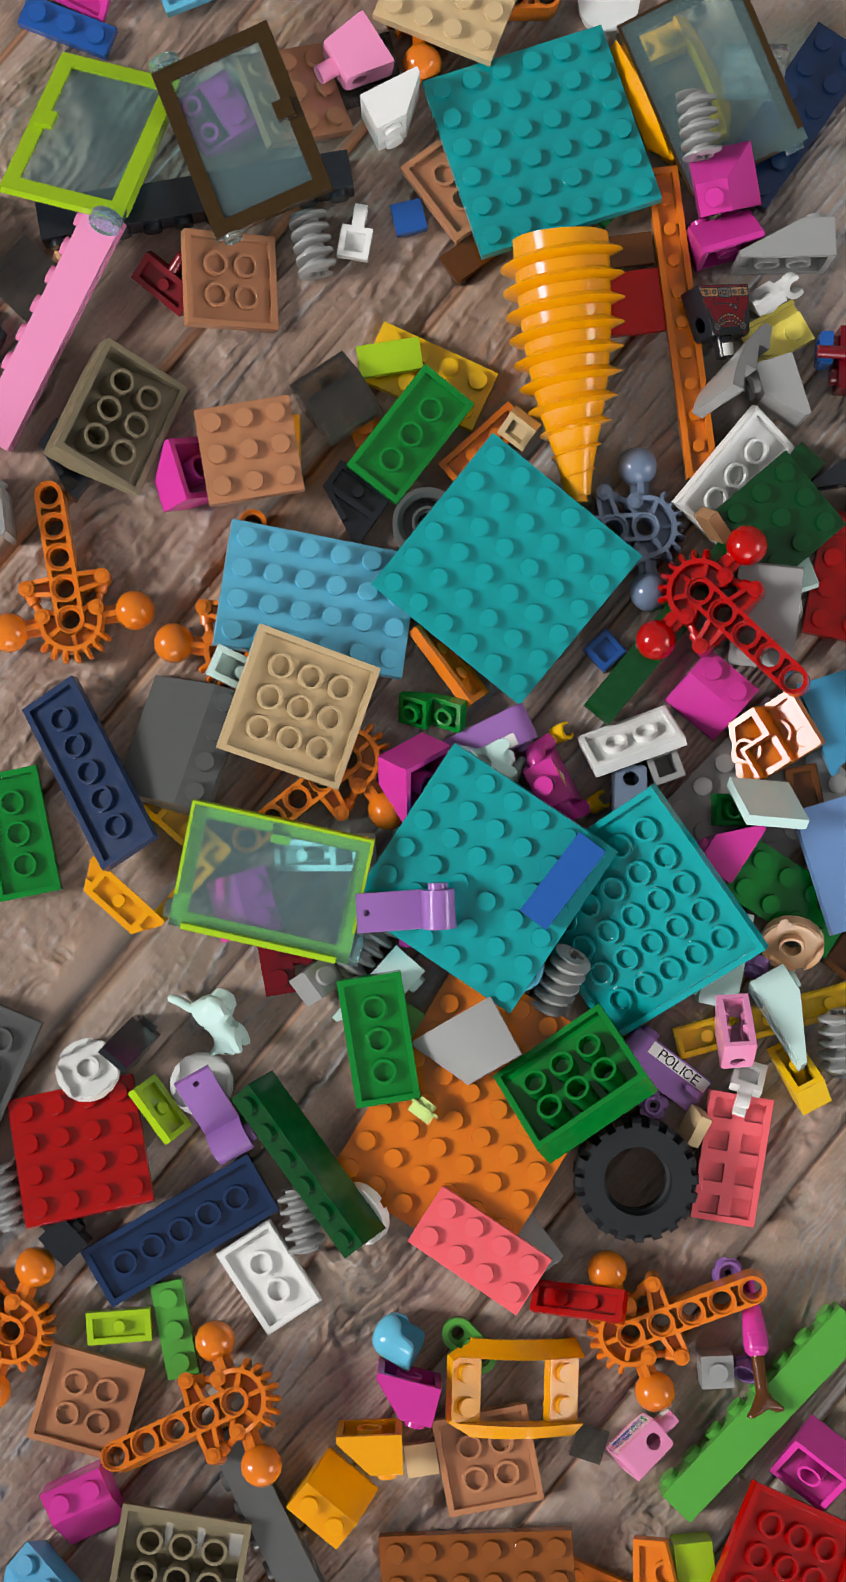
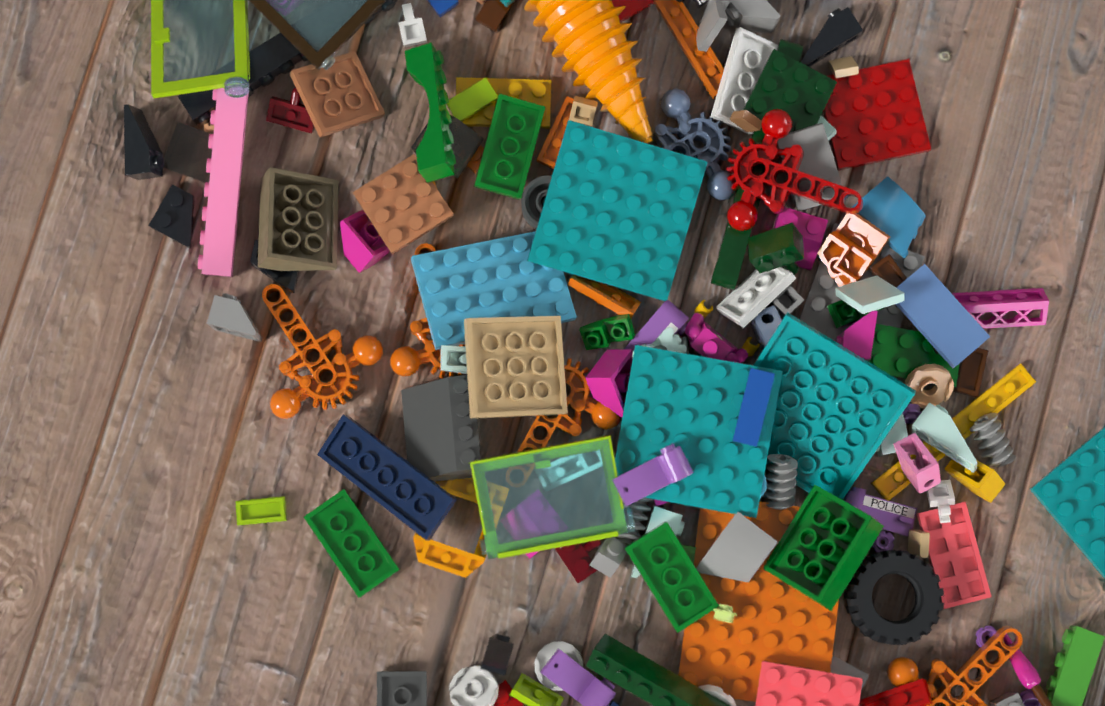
camera: 25 degrees left, 5 degrees down
(215, 1015) = (547, 611): light aqua animal -> none
(310, 245) = (381, 45): light grey piece -> none
(313, 402) = (434, 152): none -> green arch
(354, 501) = (489, 209): black wing -> none
(604, 650) = (708, 239): blue tile -> none
(680, 699) = (776, 249): none -> dark green brick

